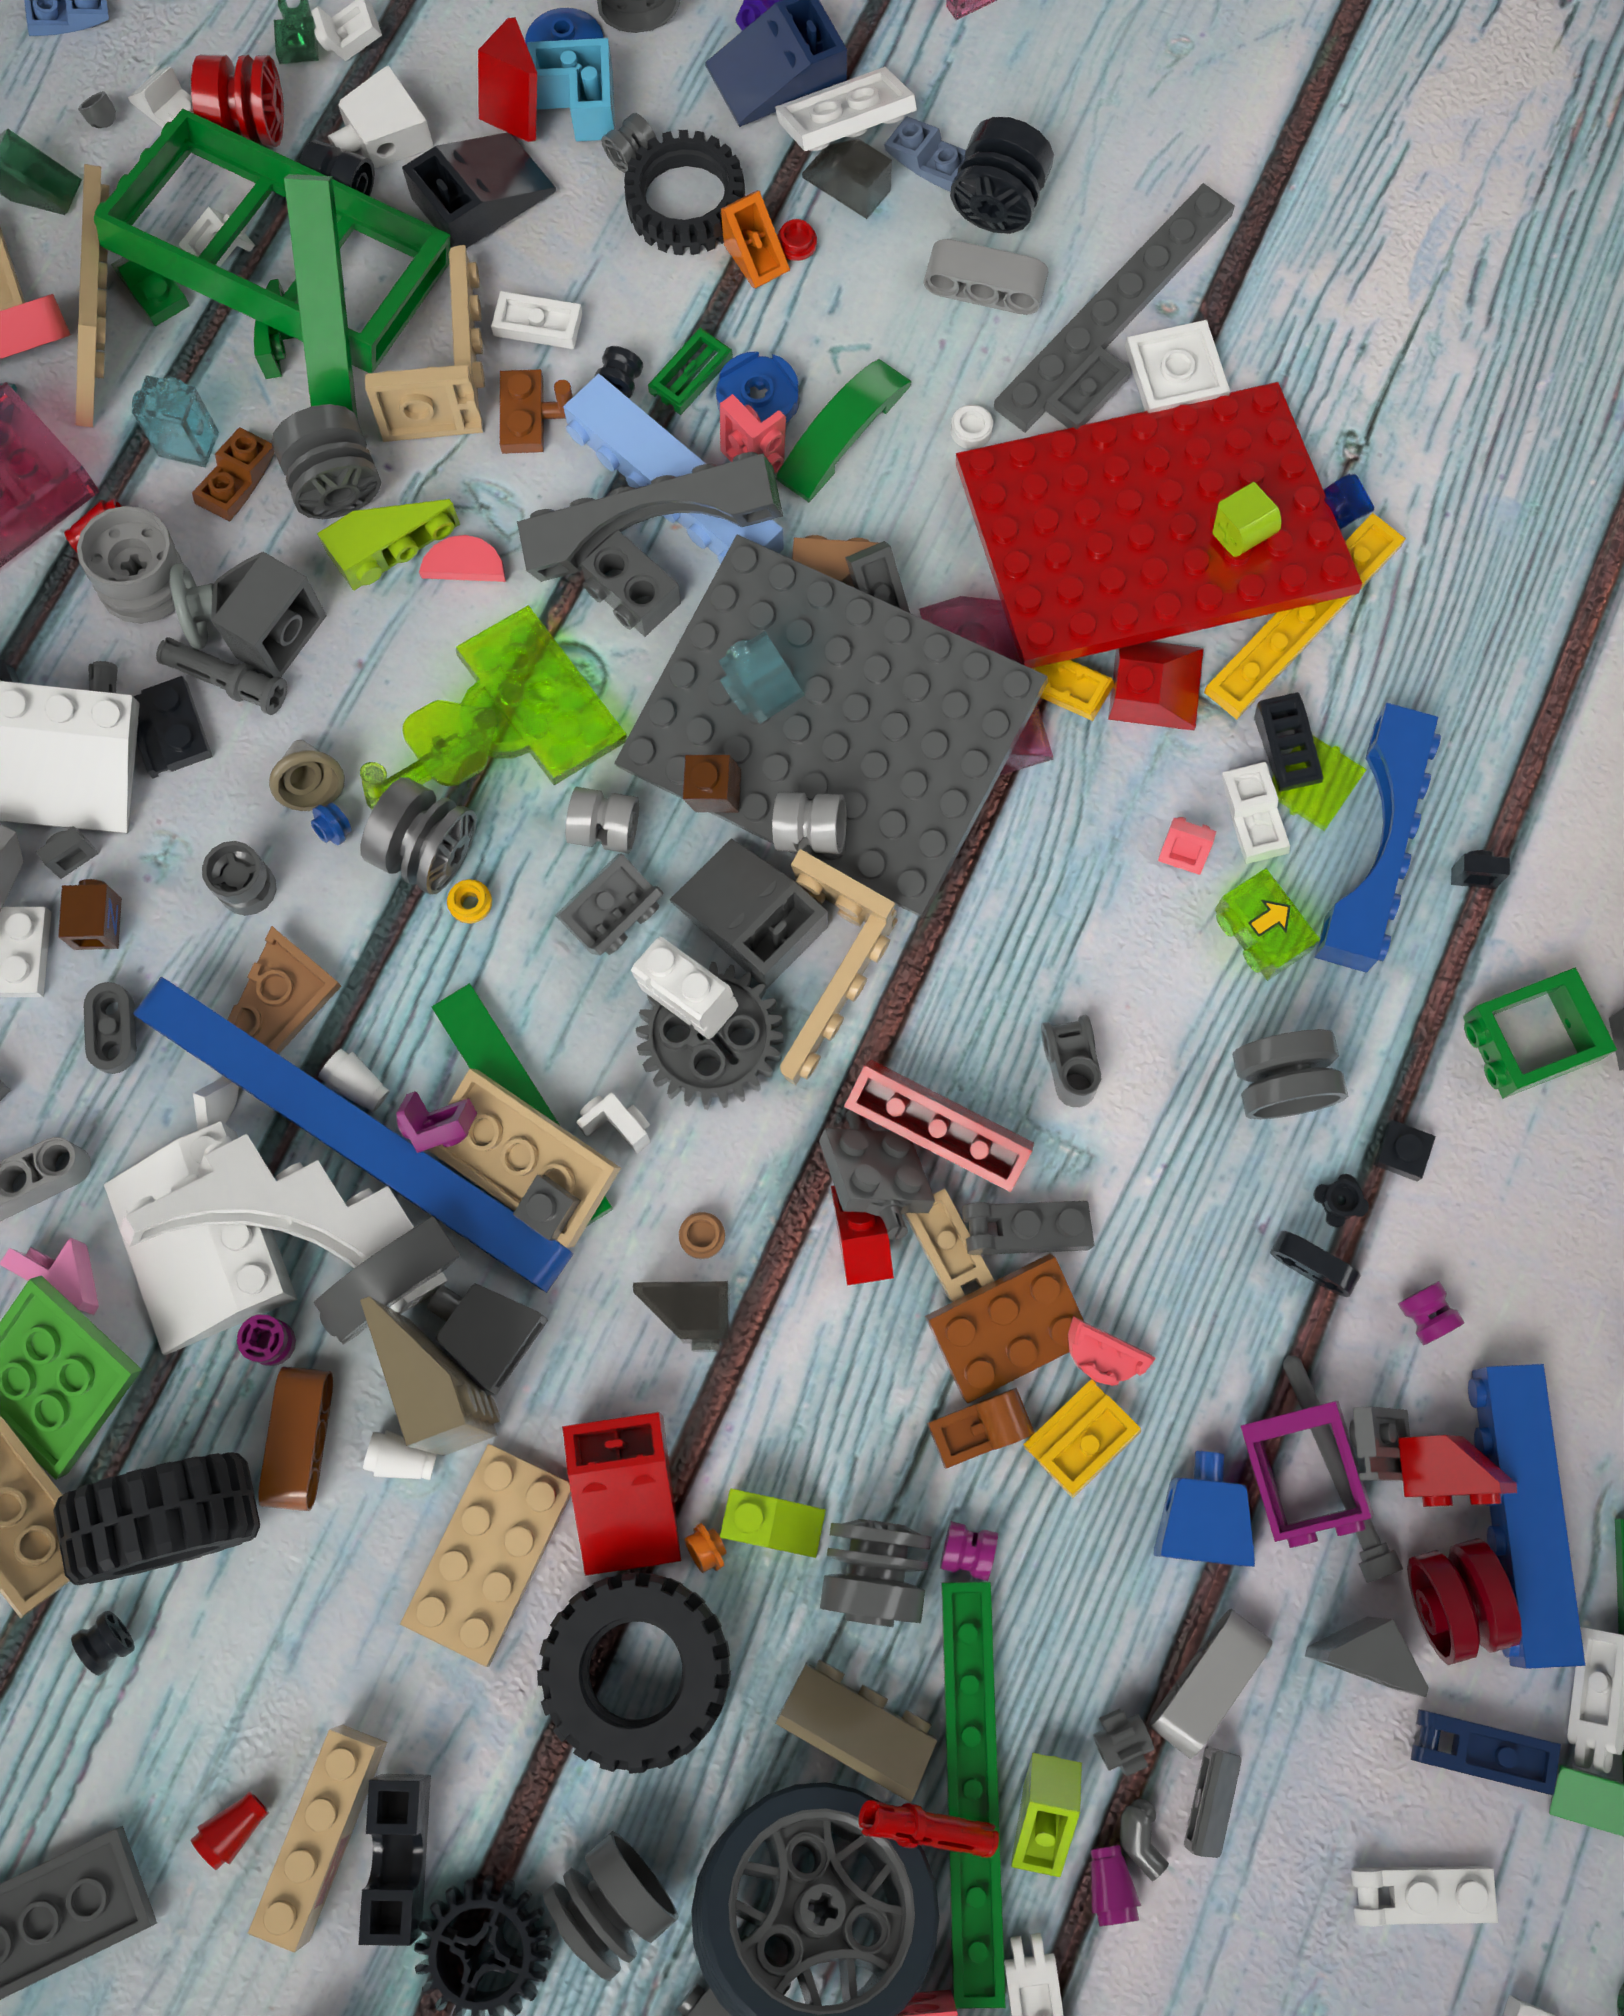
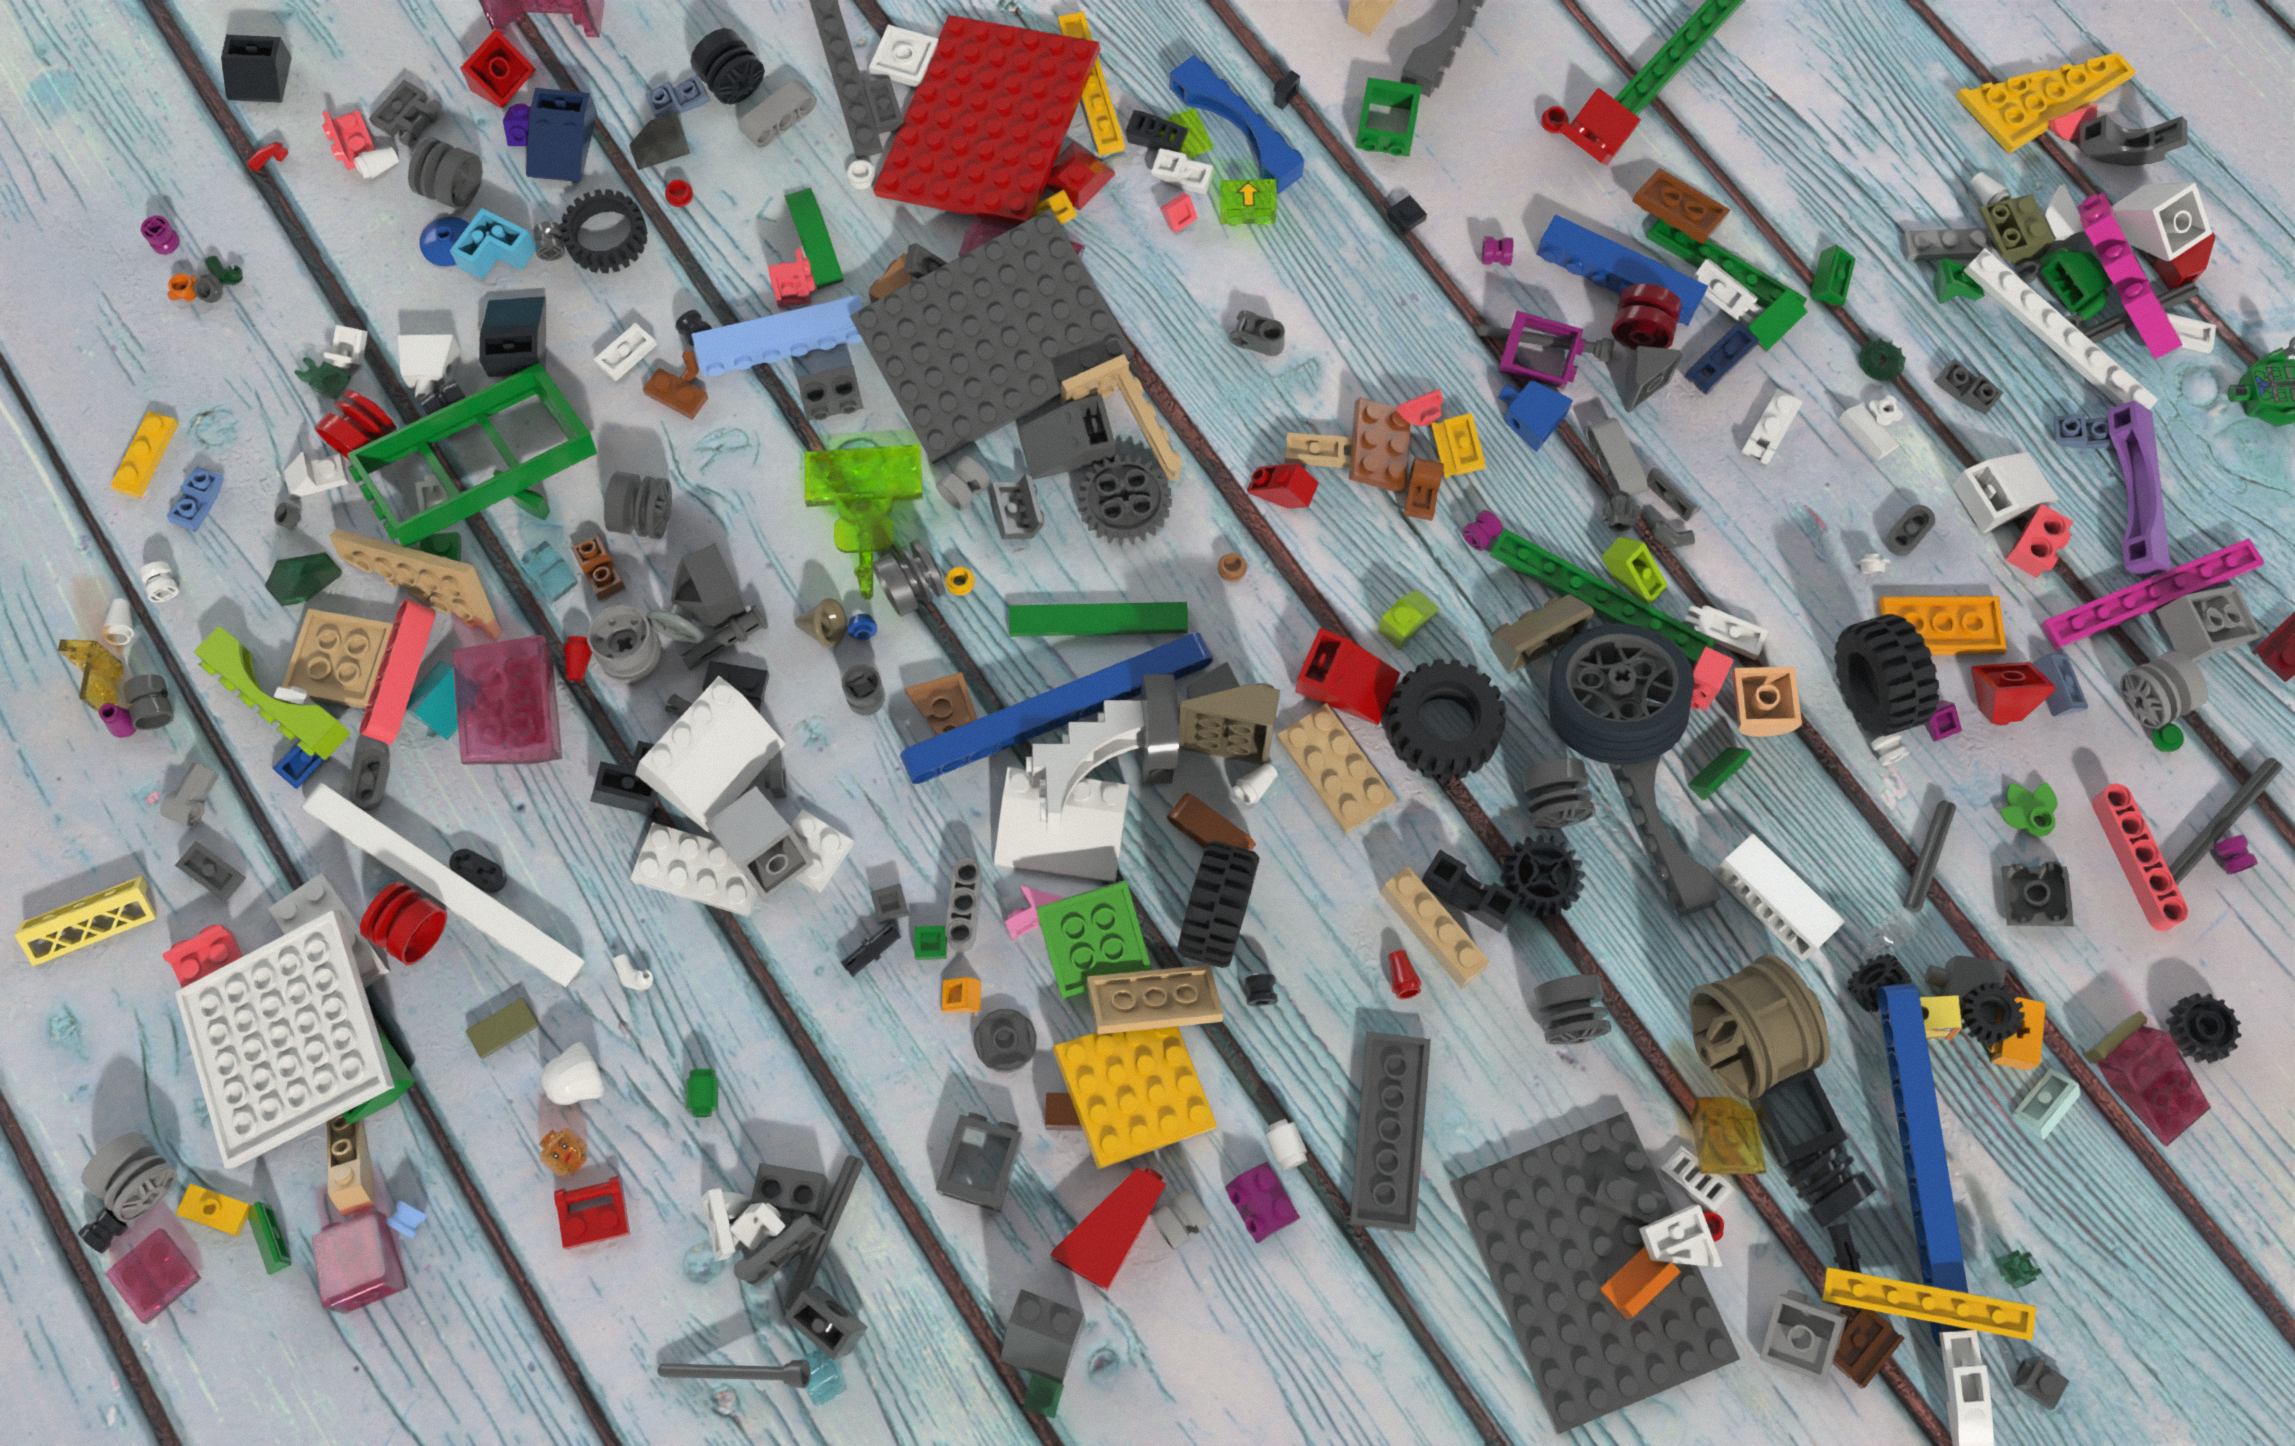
camera: 60 degrees left, 5 degrees down
(90, 916) = (826, 785): reddish brown brick -> none
(106, 1030) = (904, 810): dark grey plate -> none
(215, 1102) = (988, 777): white tile -> none
(273, 1346) = (1145, 824): magenta wheel -> none
(320, 289) = (550, 434): green tile -> none
(353, 1080) = (1020, 692): white cone -> none
(379, 538) = (701, 510): lime slope -> none
(429, 1129) = (1088, 654): magenta bracket -> none
(437, 398) = (643, 422): tan bracket -> none
(463, 559) = (748, 472): coral tile -> none
(508, 82) = (470, 274): red slope -> none
(516, 1143) = (1131, 626): tan plate -> none
(546, 1207) = (1170, 624): dark grey plate -> none
(627, 1122) = (1141, 569): white bracket -> none
(684, 987) = (1096, 486): white brick -> none
(691, 1310) = (1270, 593): clear smoke slope -> none
(701, 381) = (723, 312): green tile -> none
(705, 1548) = (1402, 655): orange plate -> none
(712, 783) = (989, 408): reddish brown brick -> none
(735, 491) = (827, 300): dark grey arch -> none
(753, 240) = (665, 214): orange slope -> none
(758, 678) = (951, 342): clear light blue brick -> none
(762, 372) = (749, 256): blue plate -> none
(809, 822) = (1048, 370): light grey wheel -> none
(846, 109) = (619, 119): white plate -> none
(875, 1574) = (1472, 578): dark grey wheel -> none
(876, 1173) = (1258, 455): dark grey plate -> none
(913, 1827) = (1607, 616): red pin -> none
(939, 1125) = (1252, 413): brick -> none
(1028, 1227) = (1333, 405): dark grey plate -> none
(1112, 1888) = (1687, 561): magenta cone -> none
(1246, 519) = (1027, 70): lime piece -> none
(1290, 1074) = (1337, 234): dark grey wheel -> none
(1315, 1263) = (1439, 287): black beam -> none
(1346, 1187) = (1413, 250): black plate -> none
(1348, 500) = (1044, 21): clear blue bracket -> none
(1376, 1437) = (1545, 308): dark grey plate -> none
(1450, 1467) = (1578, 287): red slope -> none

